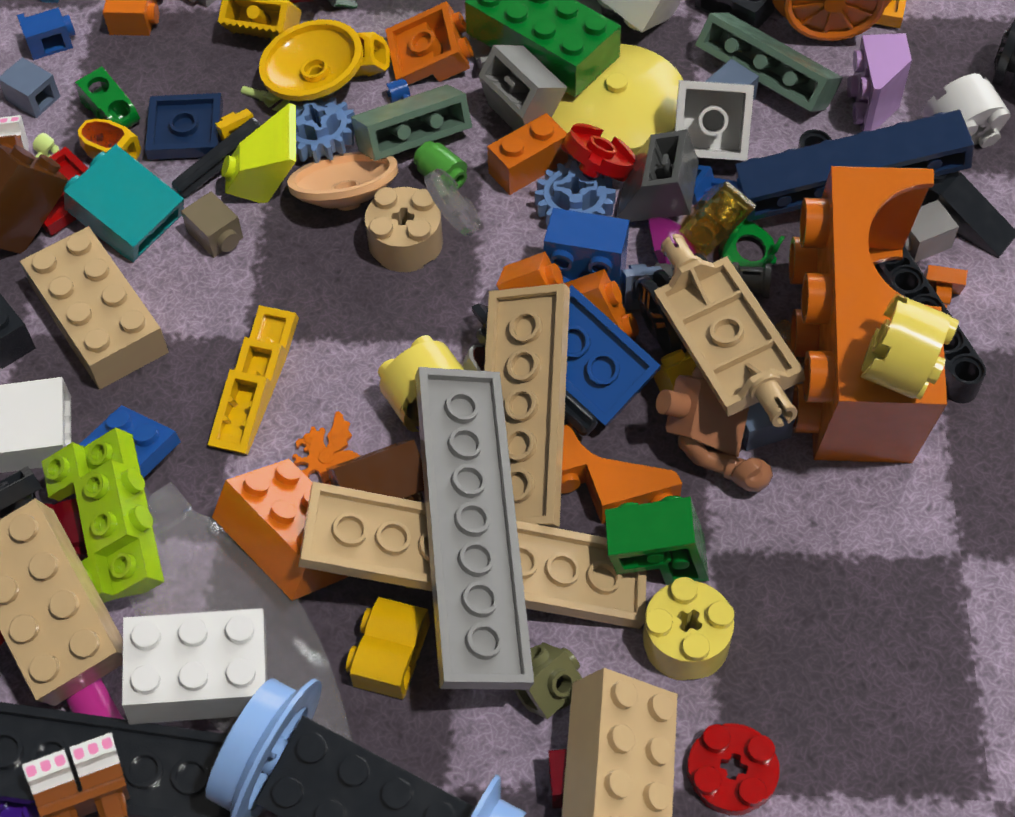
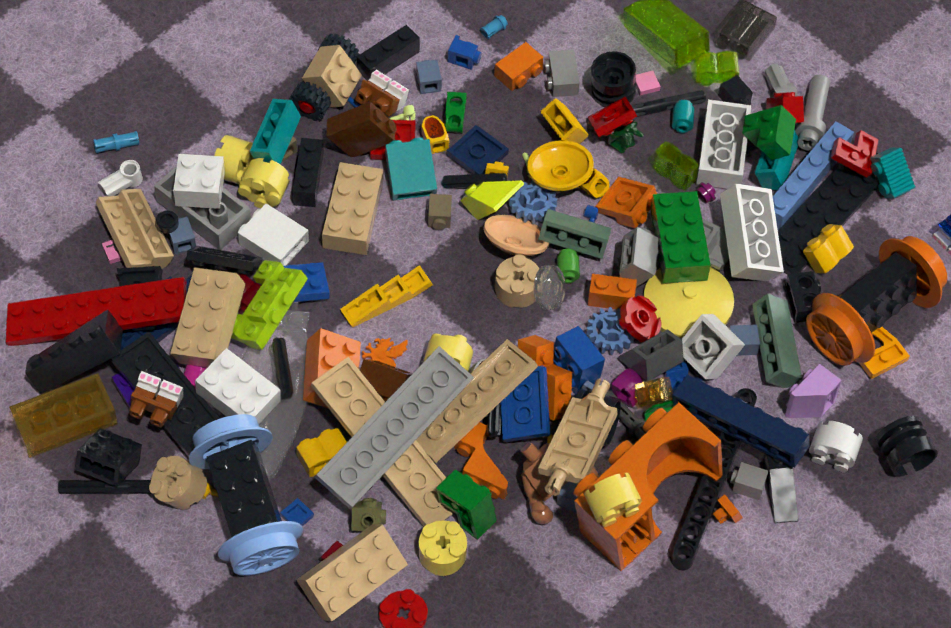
camera: 40 degrees right, 0 degrees up
(222, 578) = (282, 367): none -> black axle
(443, 765) = (297, 512): none -> blue tile

